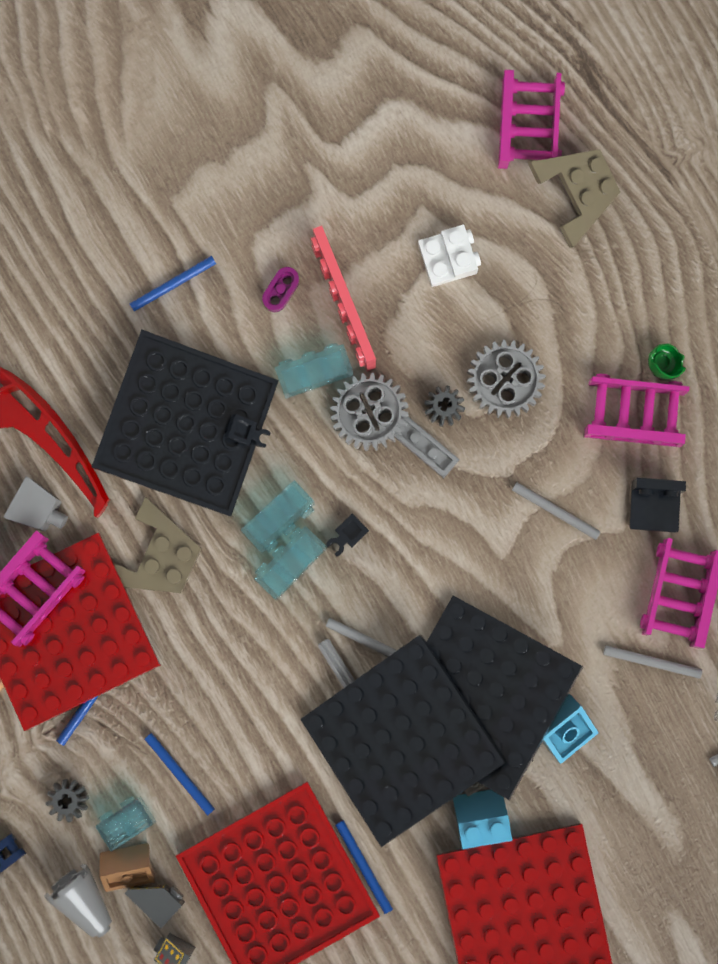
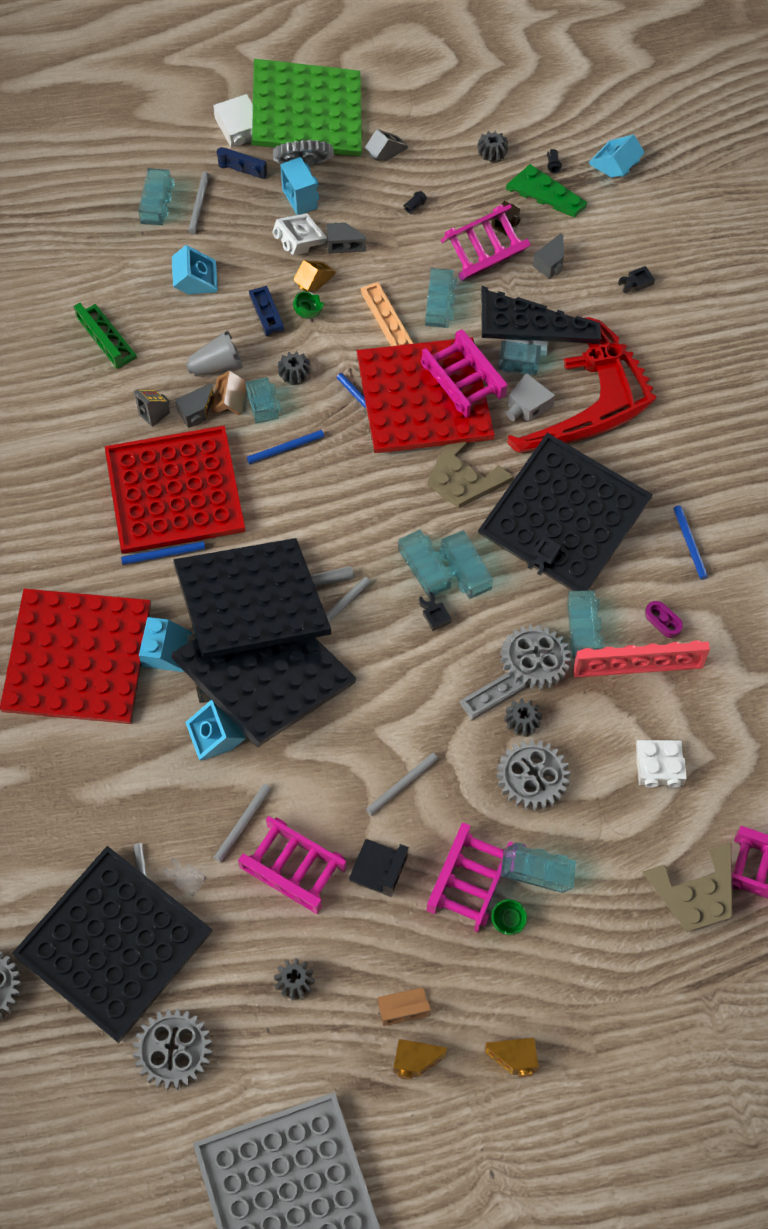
camera: 105 degrees right, 20 degrees down
(611, 345) = (538, 868): none -> clear light blue brick

